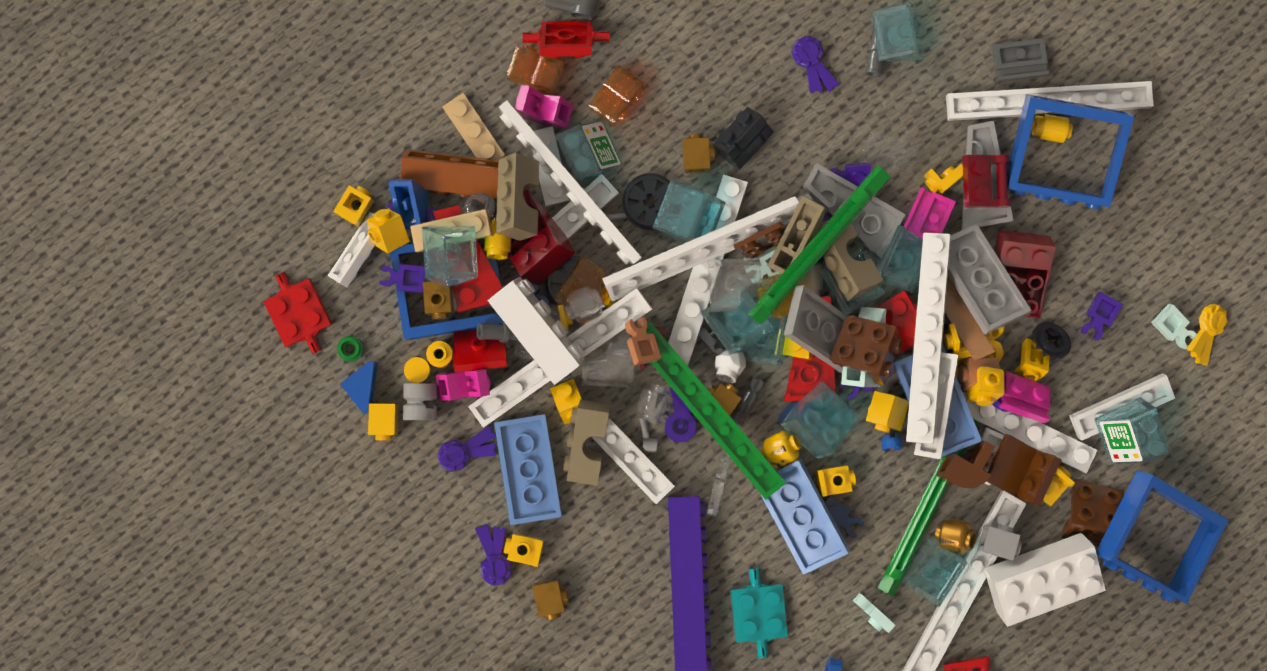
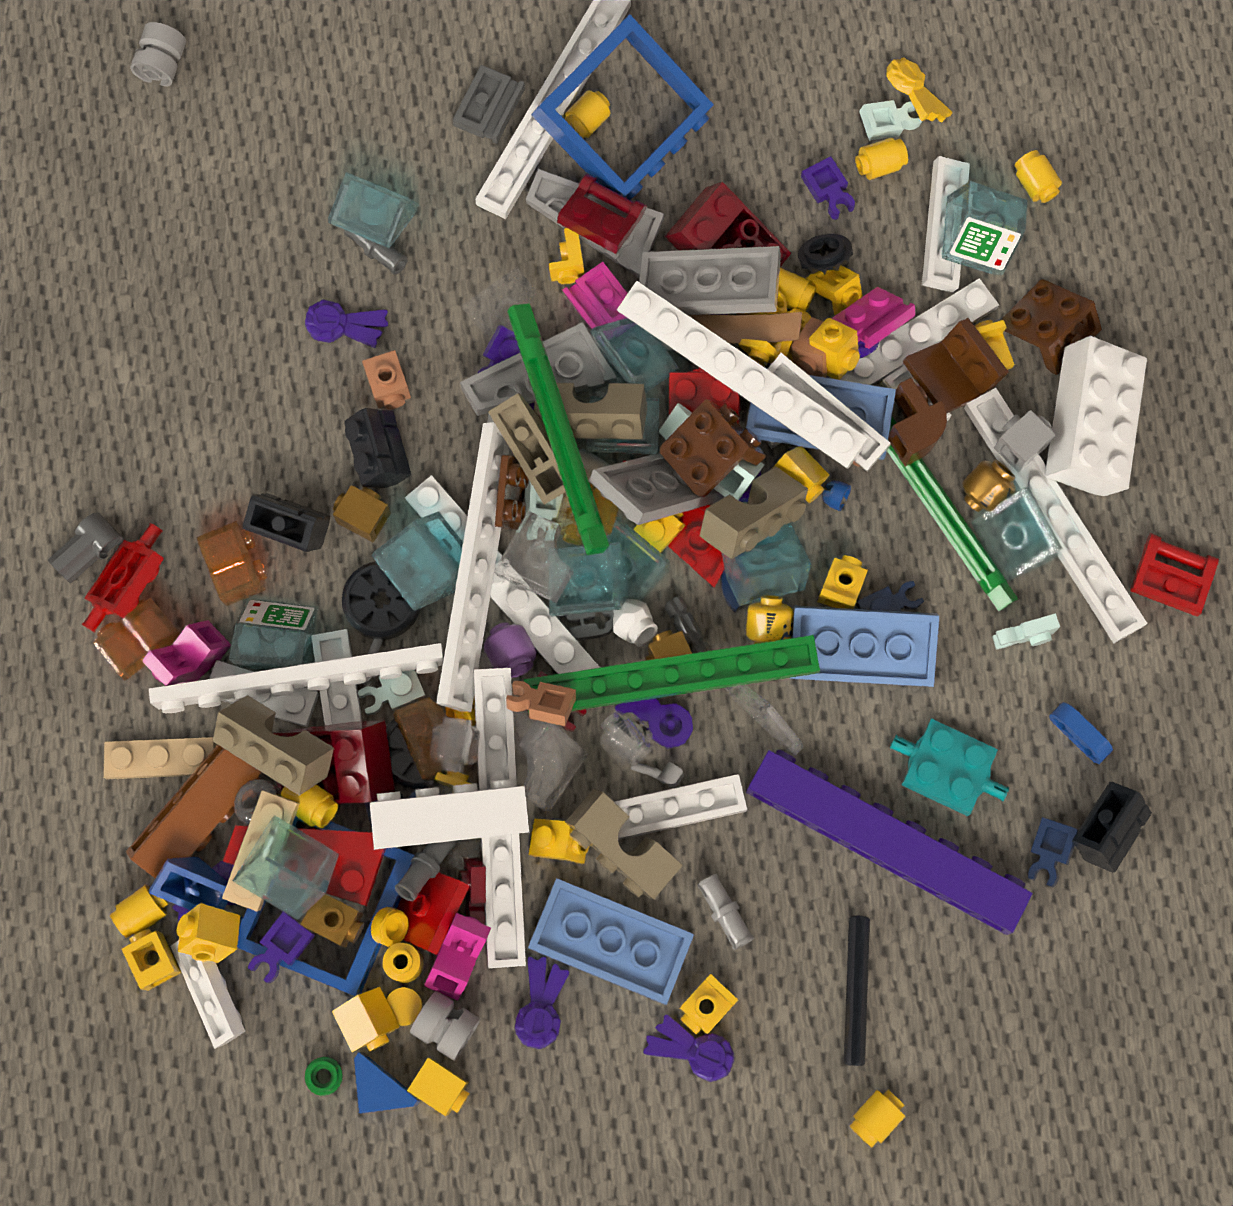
camera: 60 degrees left, 10 degrees down
(298, 313) = (236, 1116): red plate -> none
(376, 179) = (138, 912): none -> yellow brick
(395, 354) = (366, 1020): none -> yellow brick
(455, 333) = (389, 926): none -> yellow tile
(514, 365) = (475, 876): none -> dark red plate
(550, 599) = (787, 1010): pearl gold brick -> none
(586, 527) = (725, 911): none -> light grey pin
(588, 633) = (856, 991): none -> black axle
(599, 247) = (396, 691): none -> light aqua plate
(661, 113) = (286, 522): none -> black brick
(666, 300) = (510, 648): none -> medium lavender head
(791, 115) = (387, 380): none -> nougat brick
(825, 396) = (739, 526): none -> dark tan arch
(1013, 336) = (796, 290): none -> yellow brick
(1142, 338) = (881, 158): none -> yellow brick
(1194, 448) = (1038, 176): none -> yellow brick
(1196, 555) = (1154, 235): blue window -> none

